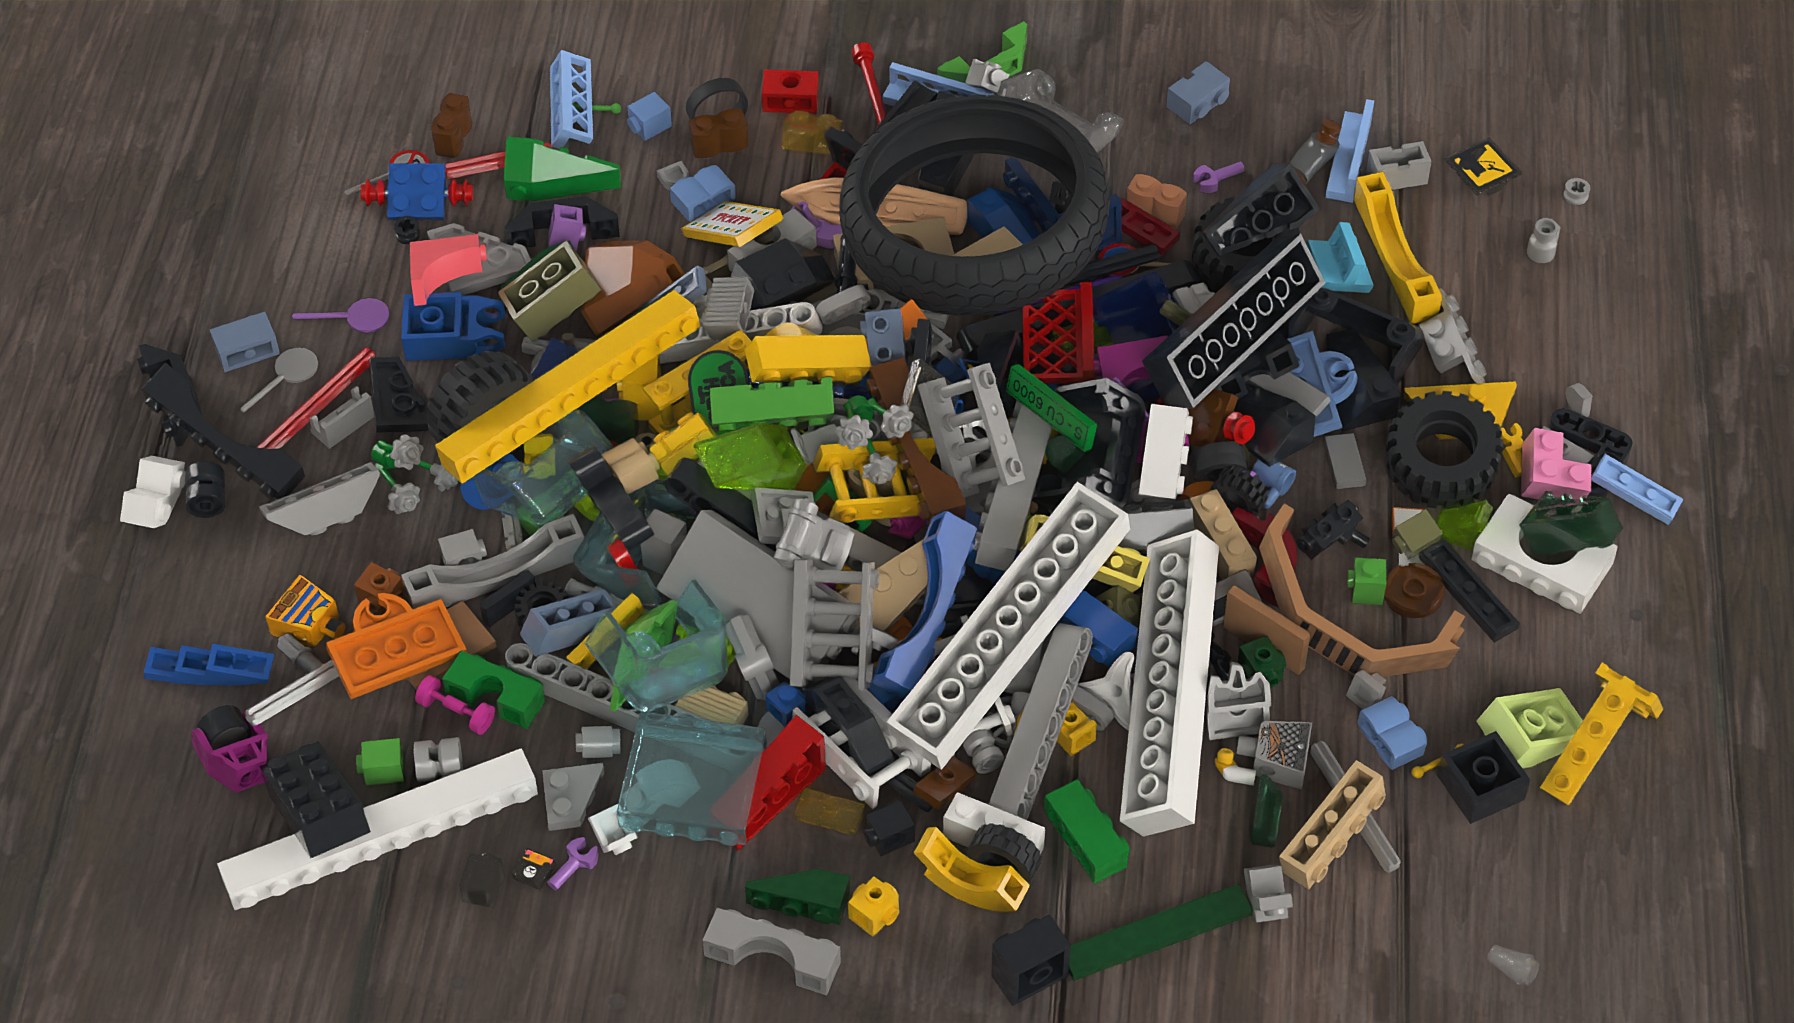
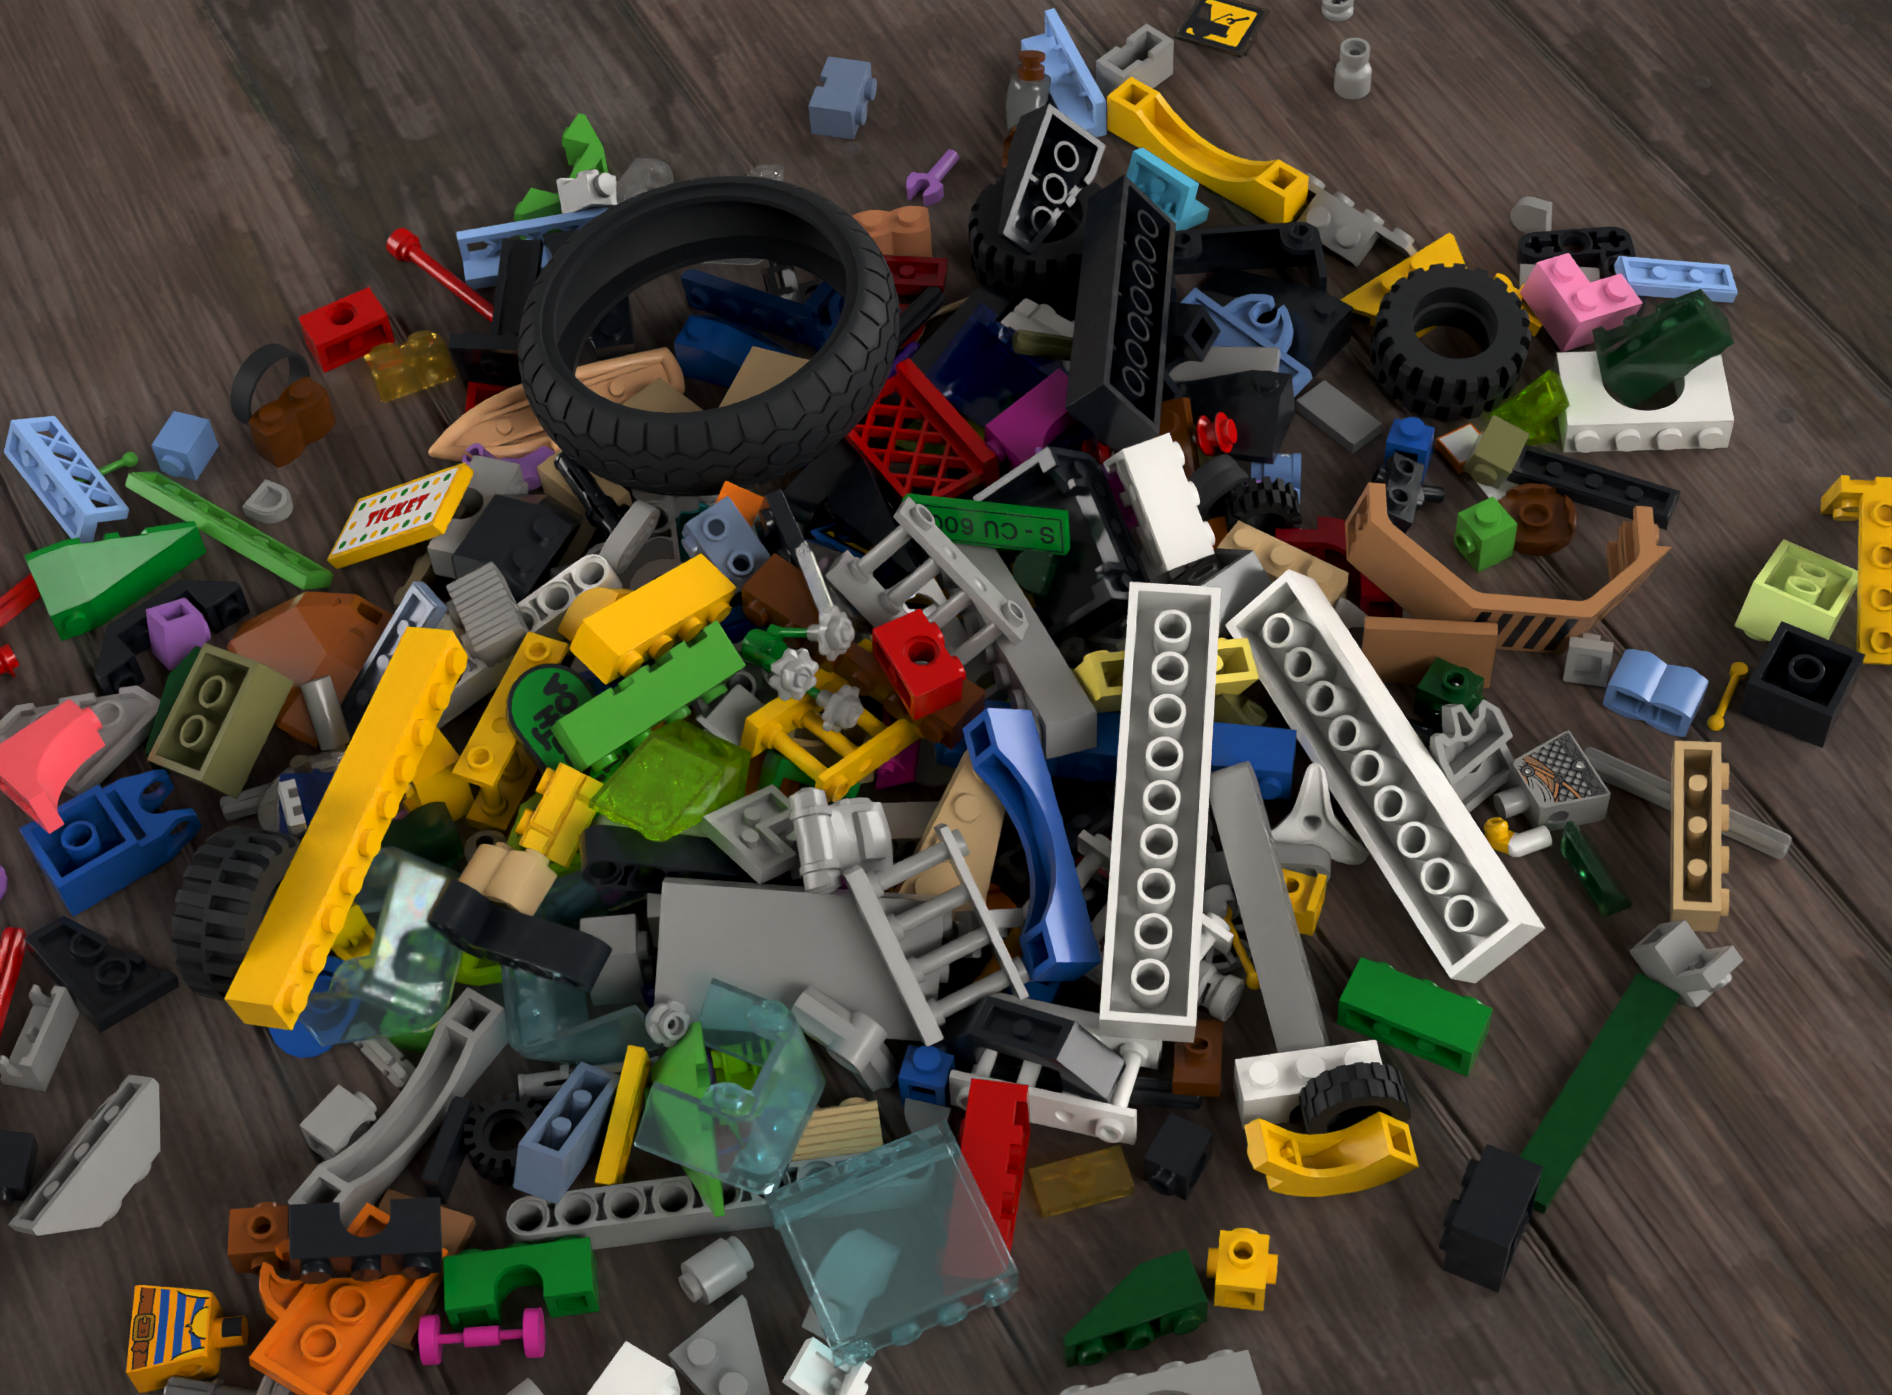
camera: 30 degrees left, 0 degrees up
(405, 454) = (180, 1034): light grey plant -> none
(442, 631) = (326, 1250): none -> black arch
(540, 355) = (292, 808): none -> light grey tile
(609, 314) = (326, 714): none -> light grey cylinder
(621, 555) = (579, 1005): red beam -> none
(638, 181) = (230, 530): none -> bright green tile
(660, 585) = (658, 1019): none -> light grey plate
(702, 192) = (323, 502): medium blue brick -> none
(932, 449) = (919, 687): none -> red brick
(1371, 499) = (1411, 439): none -> blue brick

